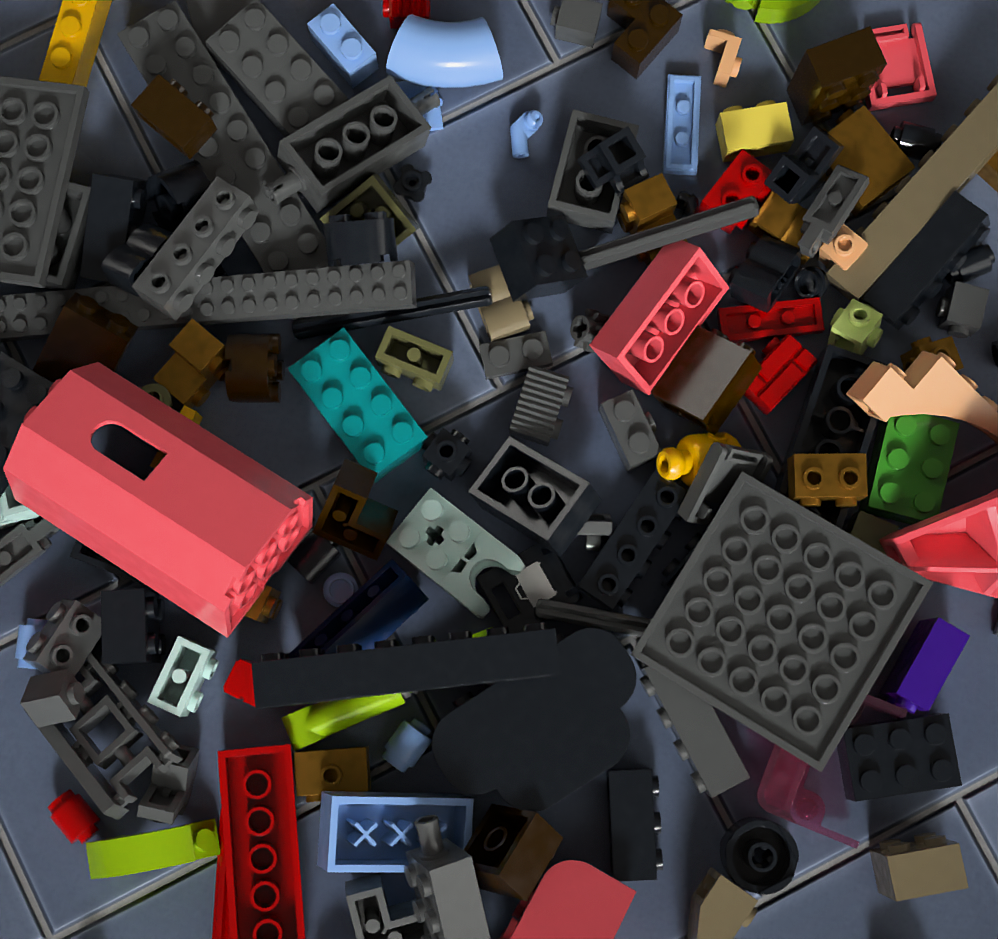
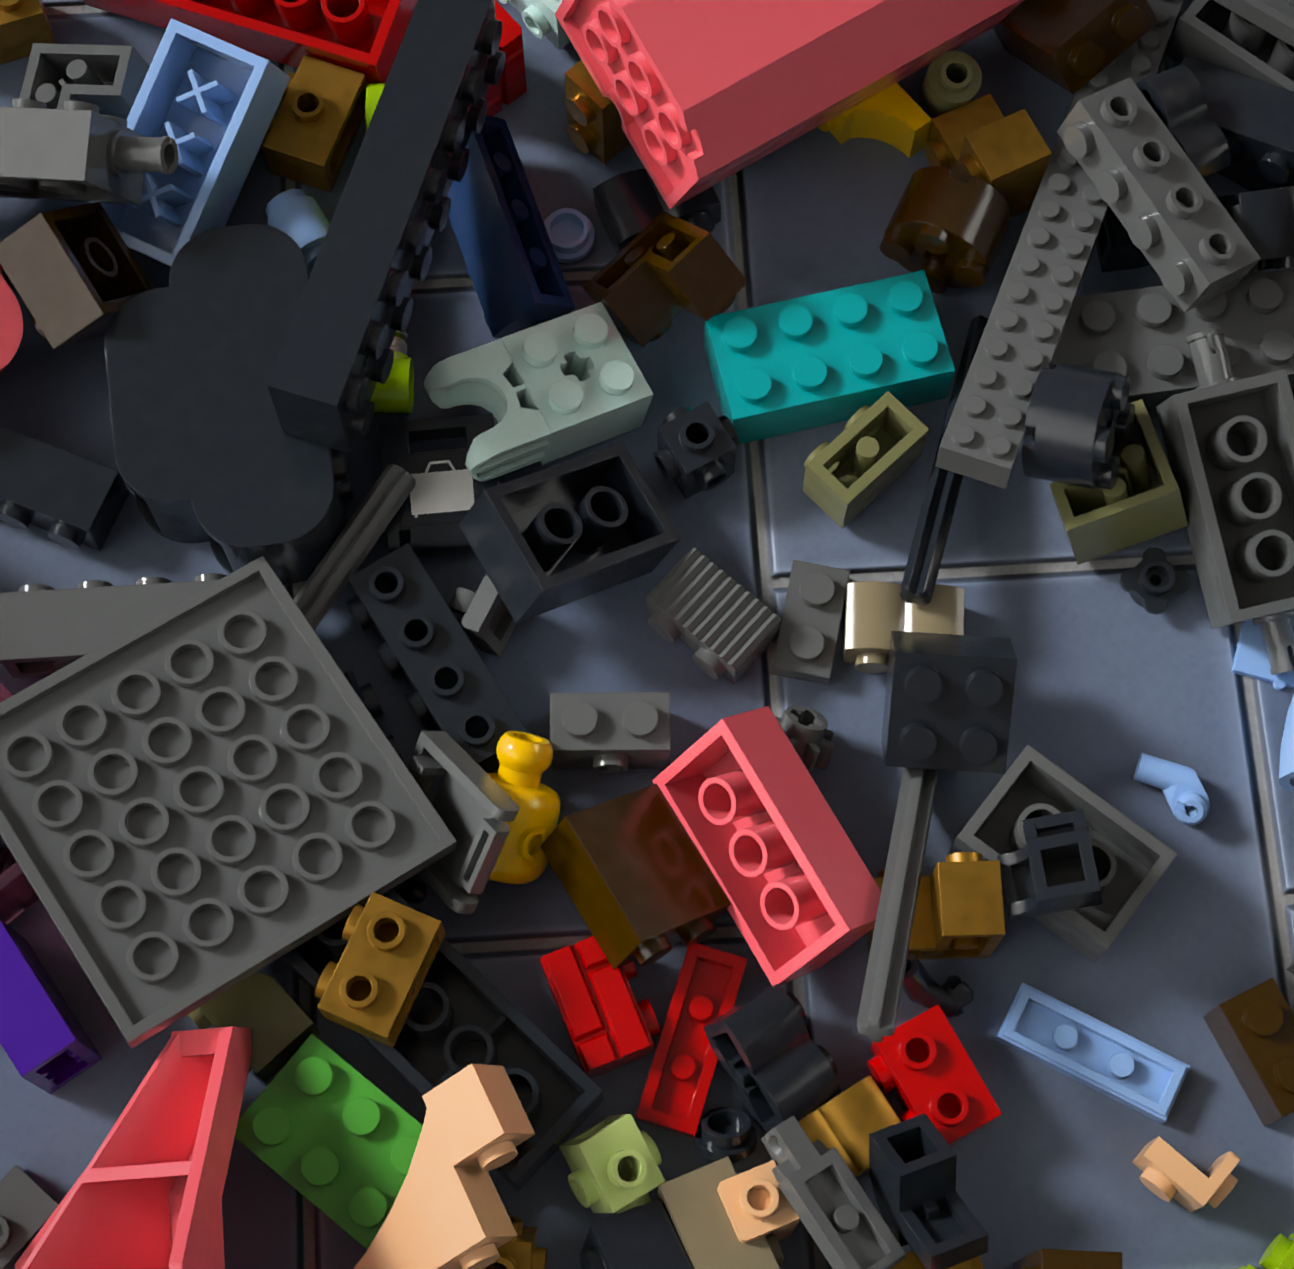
camera: 115 degrees right, 10 degrees down
(755, 130) = (1032, 1162): light yellow brick -> none

